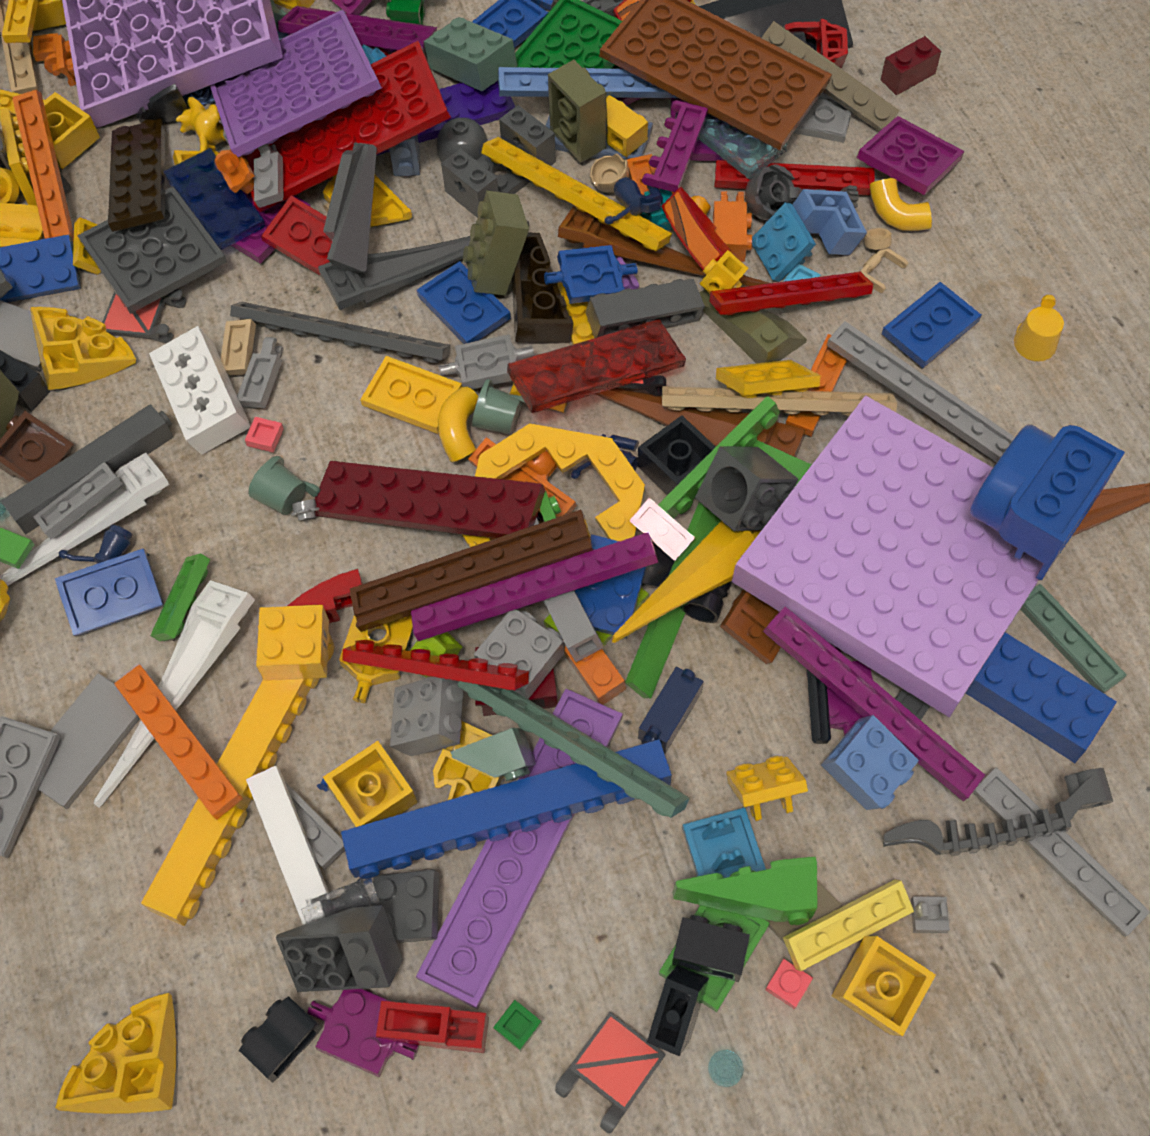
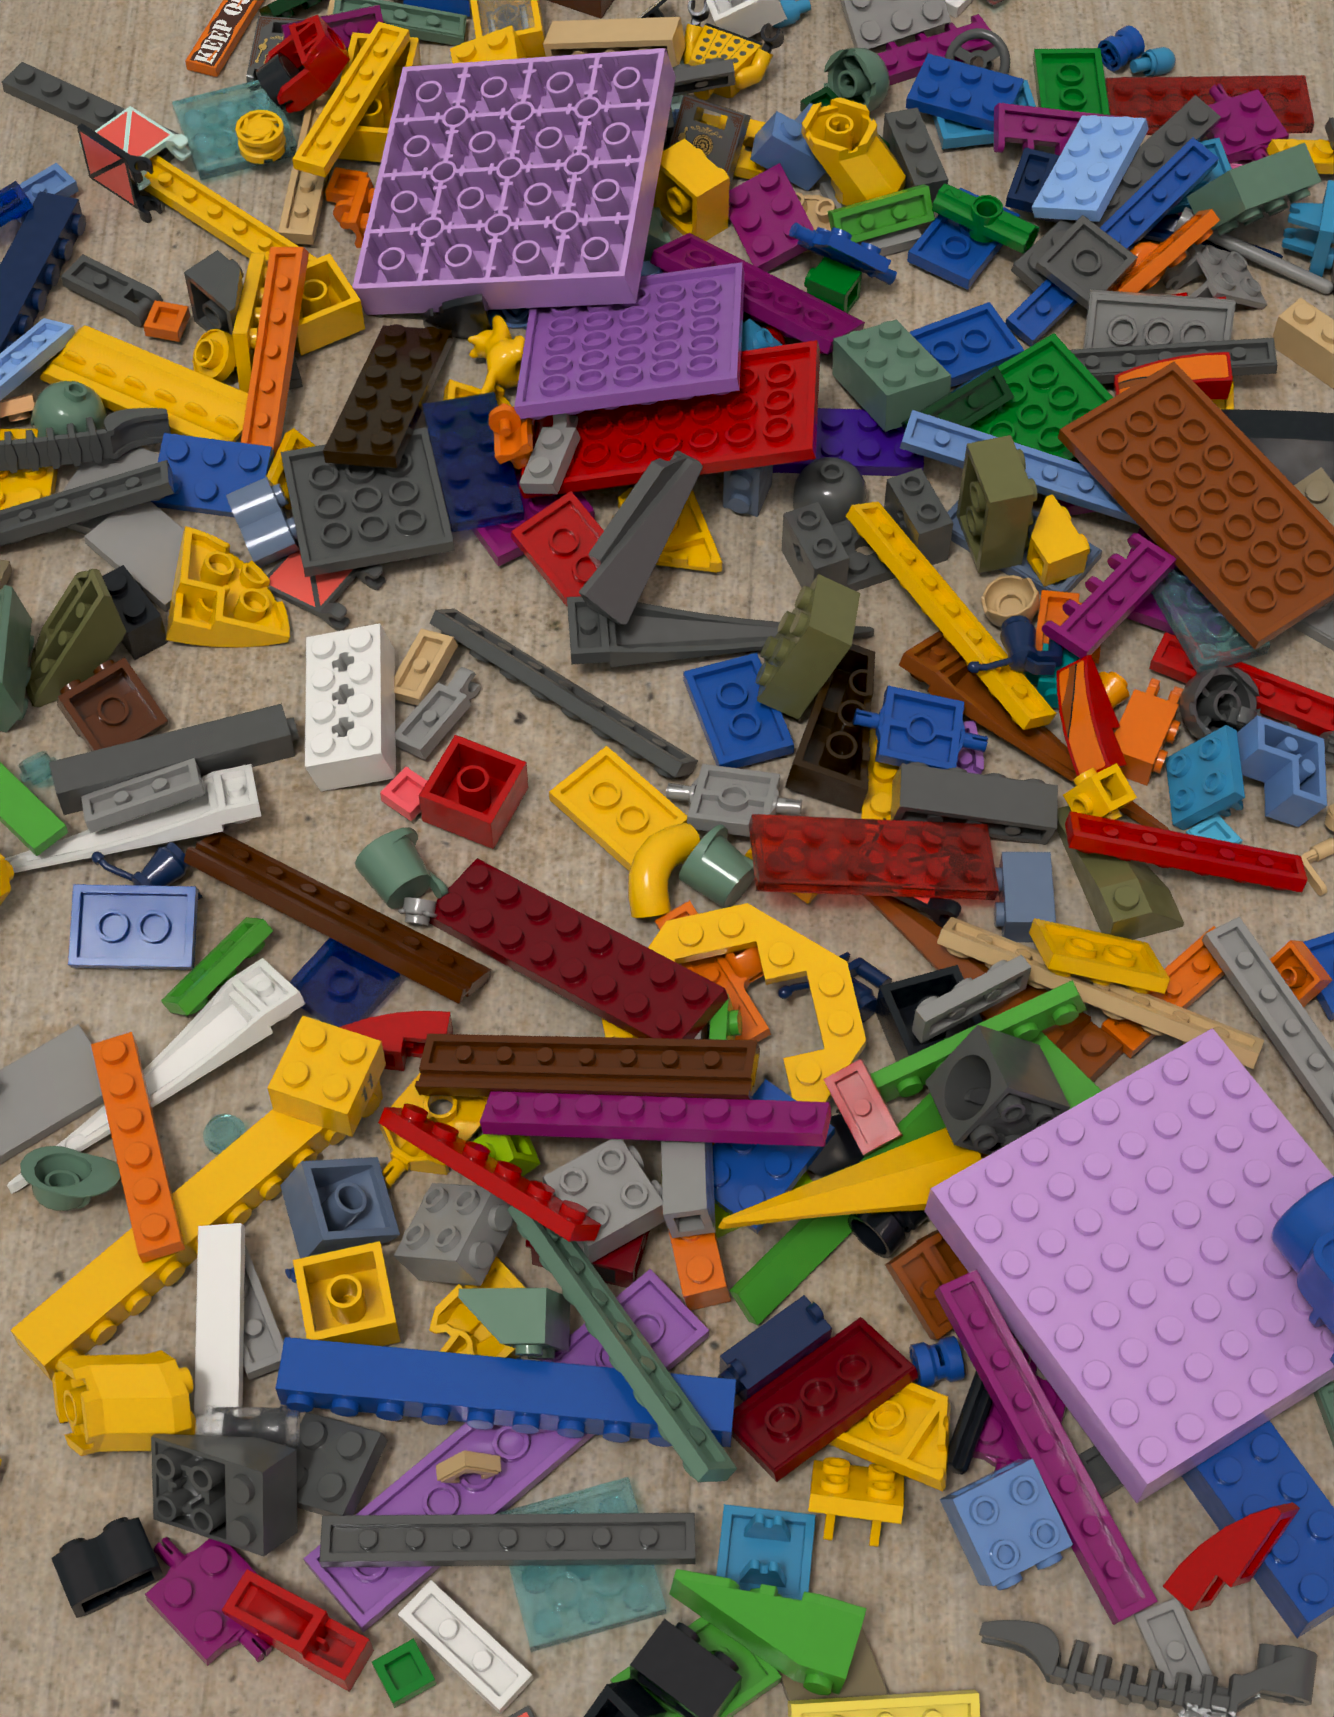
camera: 20 degrees right, 5 degrees down
(84, 286) = (264, 521): none -> sand blue brick
(136, 782) = (67, 1178): none -> sand green piece
(233, 709) = (222, 1132): none -> clear light blue plate
(243, 920) = (122, 1400): none -> yellow brick
(250, 533) = (338, 916): none -> reddish brown plate
(274, 575) = (343, 984): none -> clear blue plate
(309, 416) = (474, 791): none -> red brick
(336, 728) = (338, 1205): none -> sand blue slope
(502, 866) = (467, 1463): none -> tan tile
(530, 52) = (971, 399): none -> dark green plate
(550, 907) = (507, 1540): none -> dark grey plate
(551, 990) = (465, 1647): none -> white plate
(604, 903) = (584, 1600): none -> clear light blue plate
(702, 355) = (1024, 893): none -> sand blue brick
(702, 432) = (970, 998): none -> light grey plate
(715, 729) = (820, 1398): none -> dark red tile
(764, 729) = (905, 1435): none -> yellow wing
(778, 676) = (937, 1361): none -> blue wheel
(895, 341) = (1301, 971): none -> orange piece
(1020, 728) = (1229, 1556): none -> red slope

